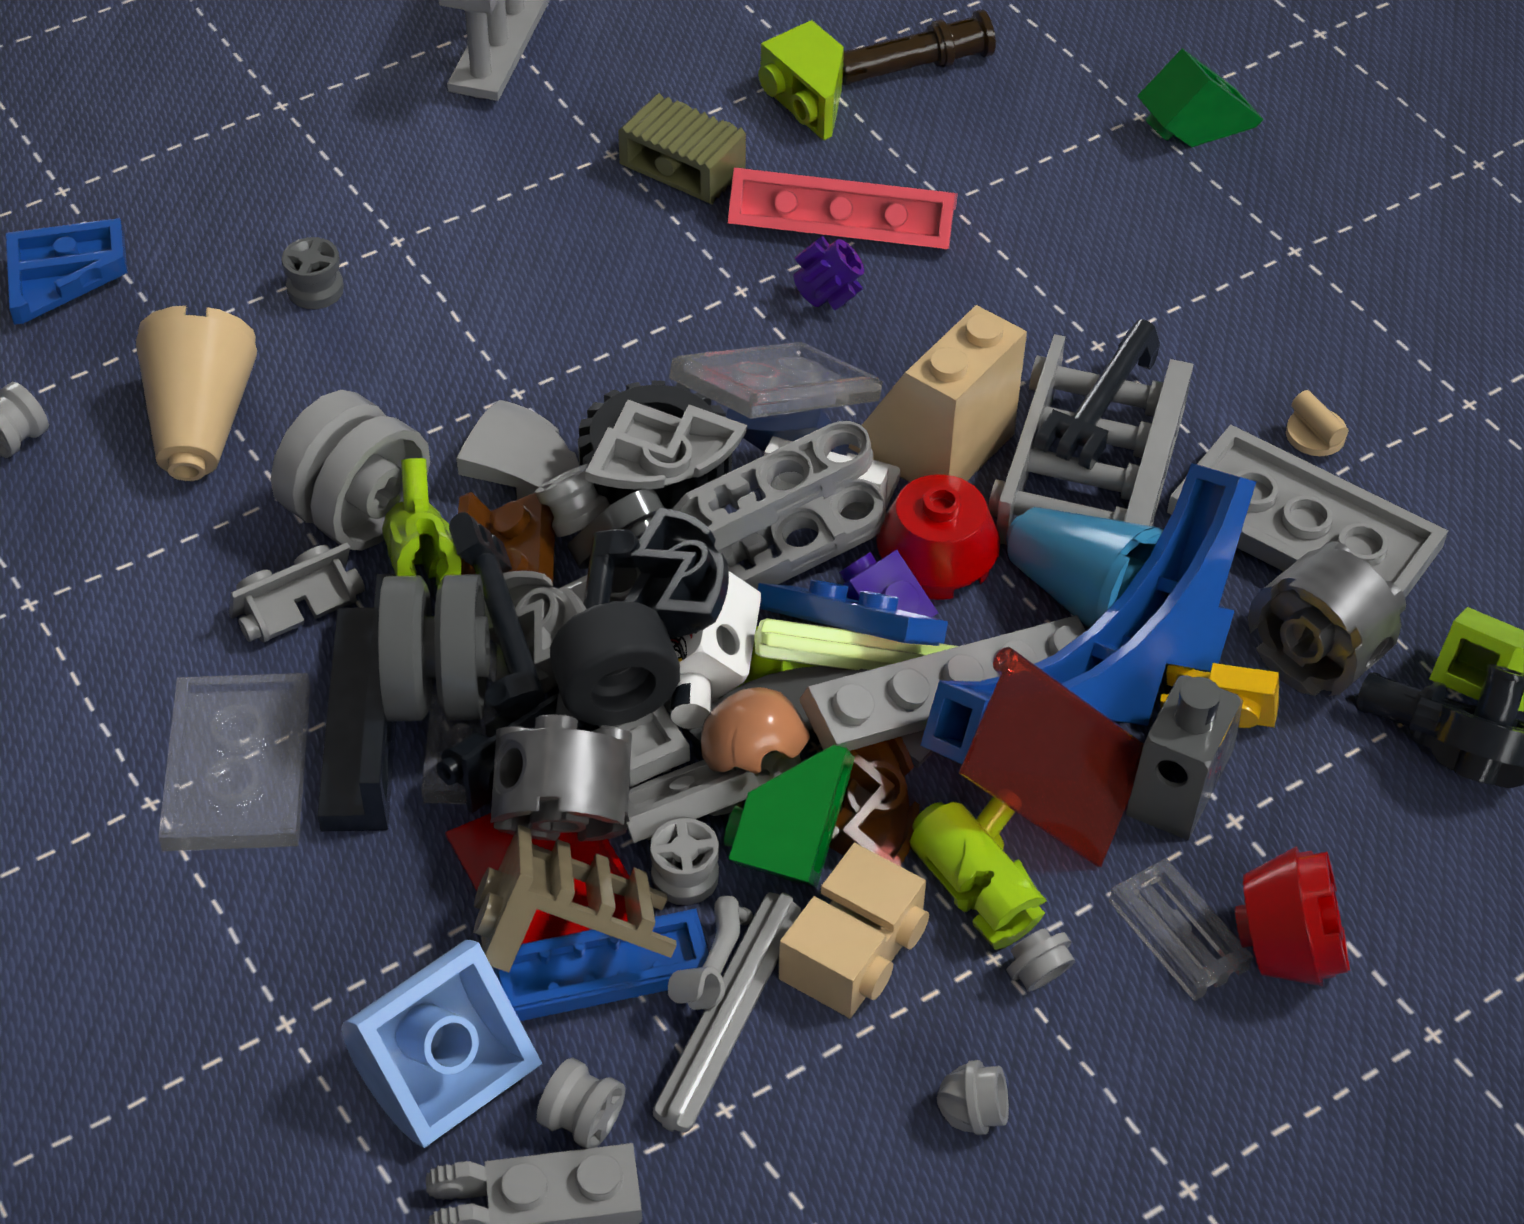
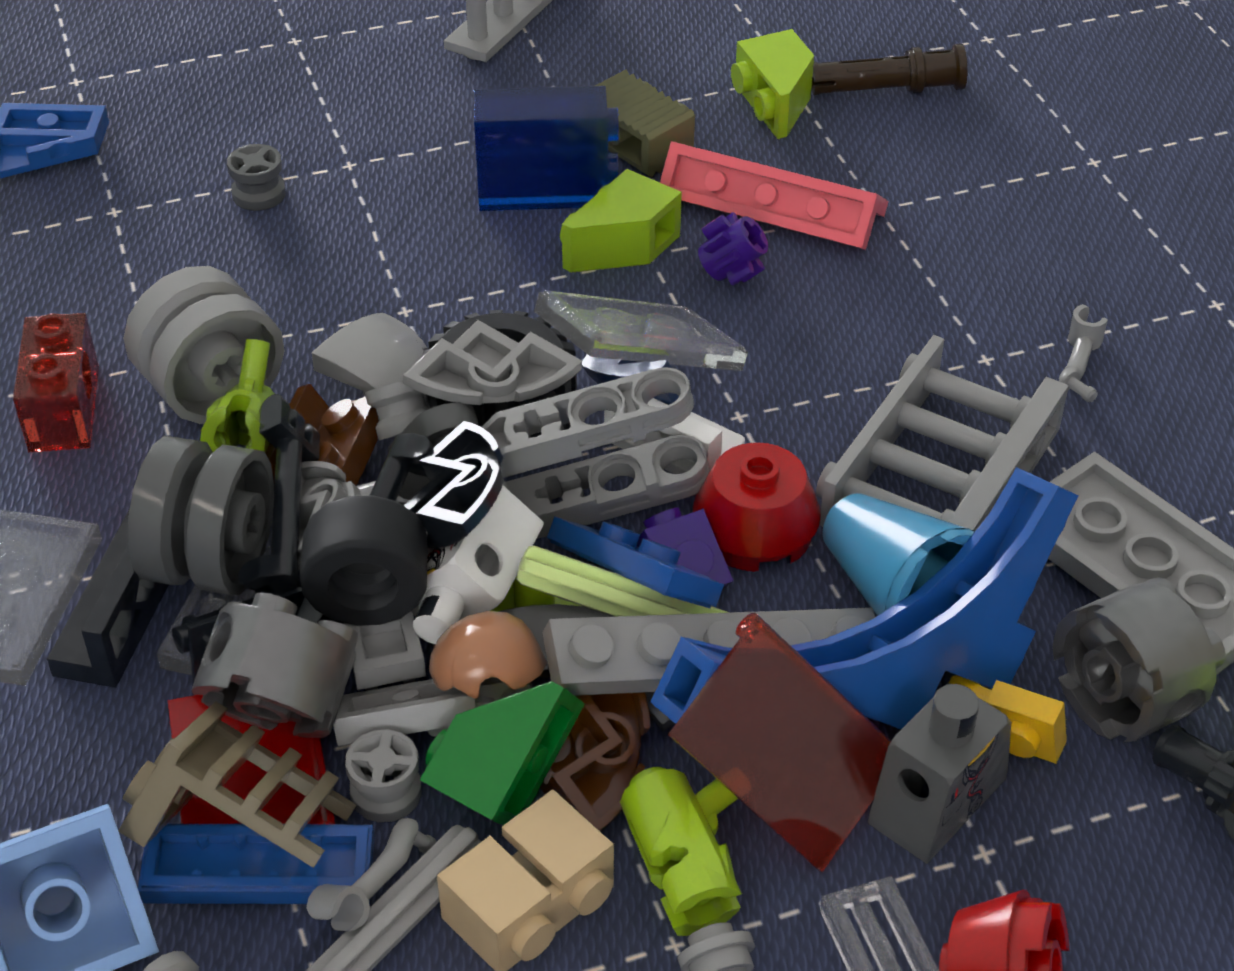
camera: 15 degrees right, 5 degrees down
(193, 384) = (102, 245): tan cone -> none
(205, 532) = (56, 382): none -> clear red brick
(272, 598) = (89, 449): light grey hinge -> none
(608, 195) = (543, 146): none -> clear blue brick
(709, 264) = (622, 225): none -> lime slope
(952, 402) = (806, 377): tan slope -> none
(1138, 345) = (933, 429): black hinge -> none
(1186, 308) = (1084, 338): none -> light grey piece
(1195, 103) = (1149, 154): green slope -> none
(1314, 427) = (1186, 471): tan plate -> none

